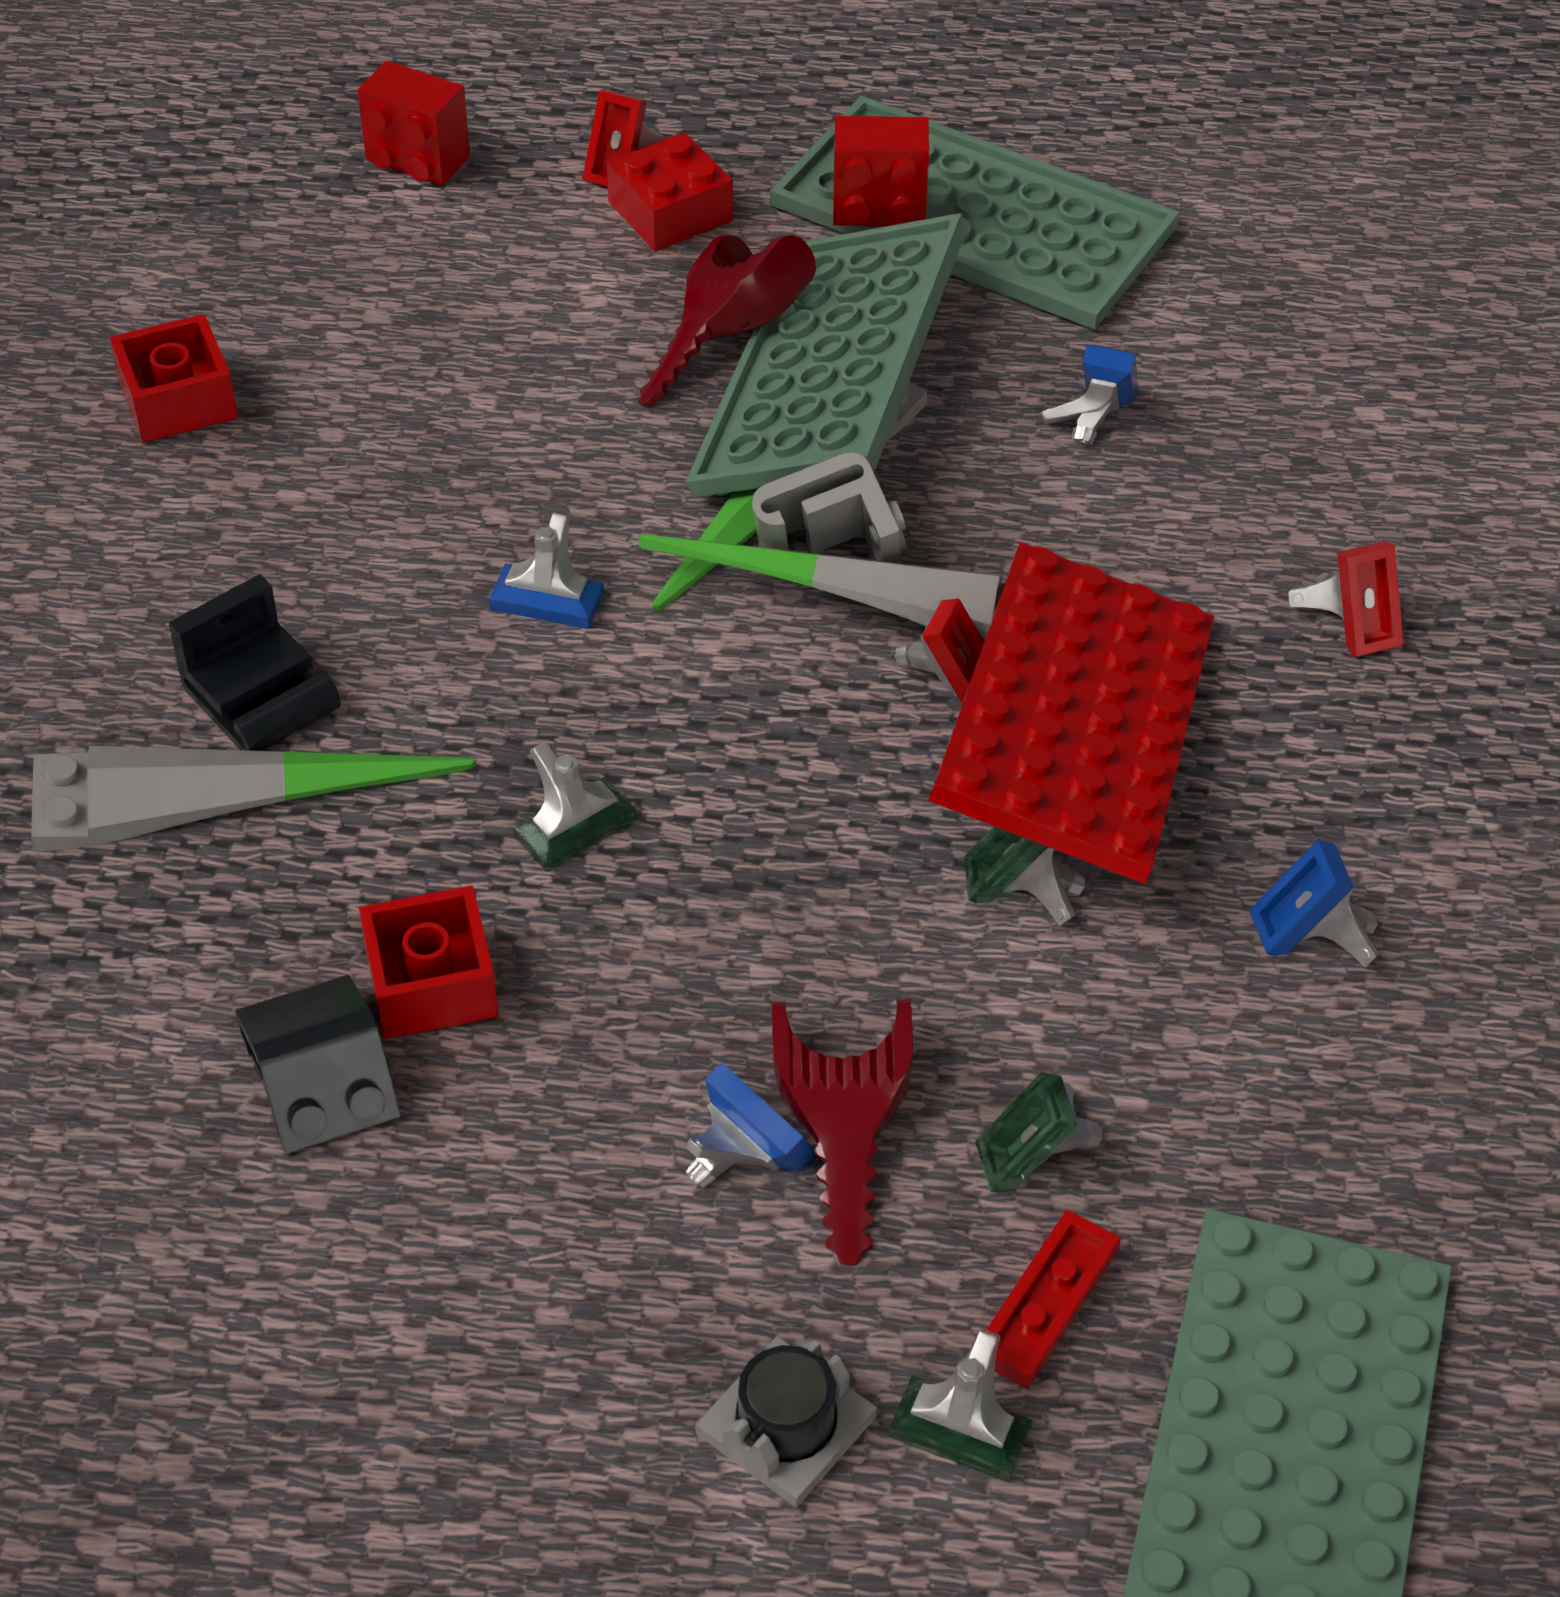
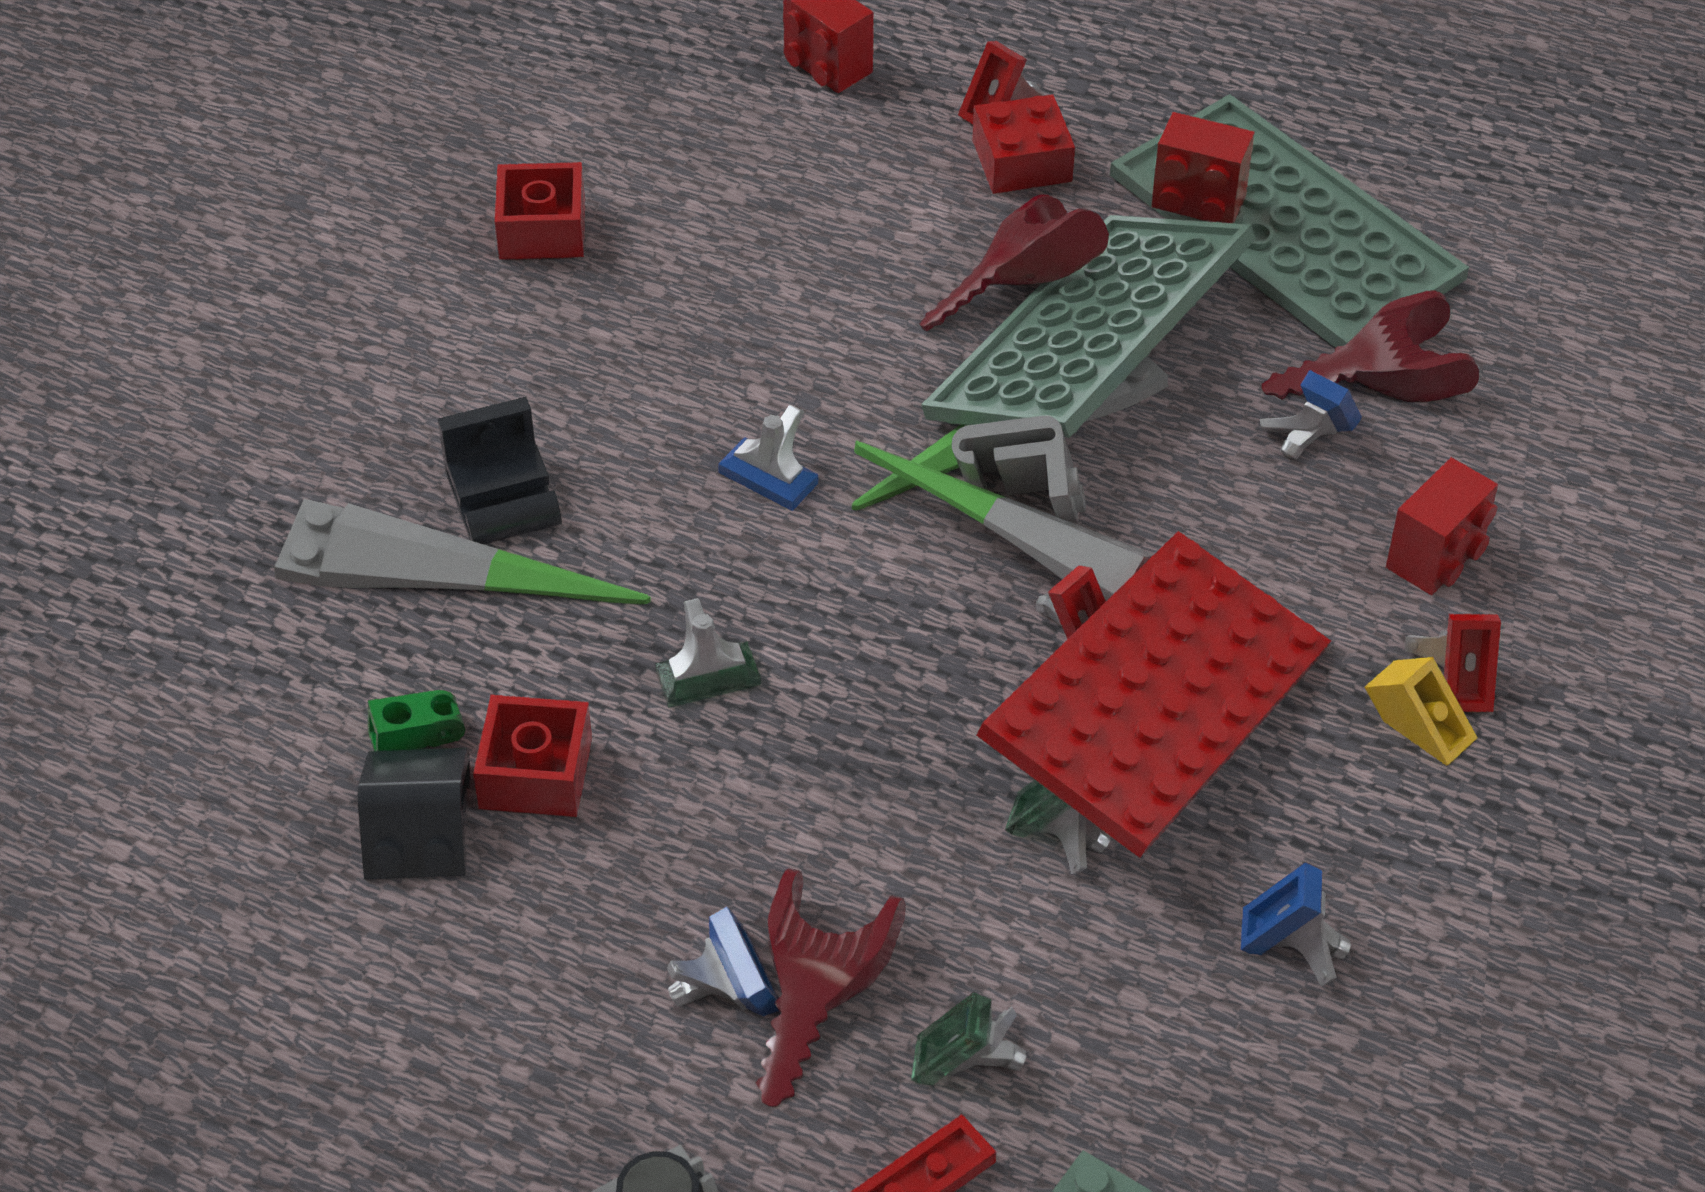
camera: 20 degrees right, 0 degrees up
(270, 964) = (414, 721): none -> green leg
(1144, 319) = (1389, 357): none -> dark red animal
(1281, 471) = (1442, 527): none -> red brick
(1336, 656) = (1422, 707): none -> yellow slope

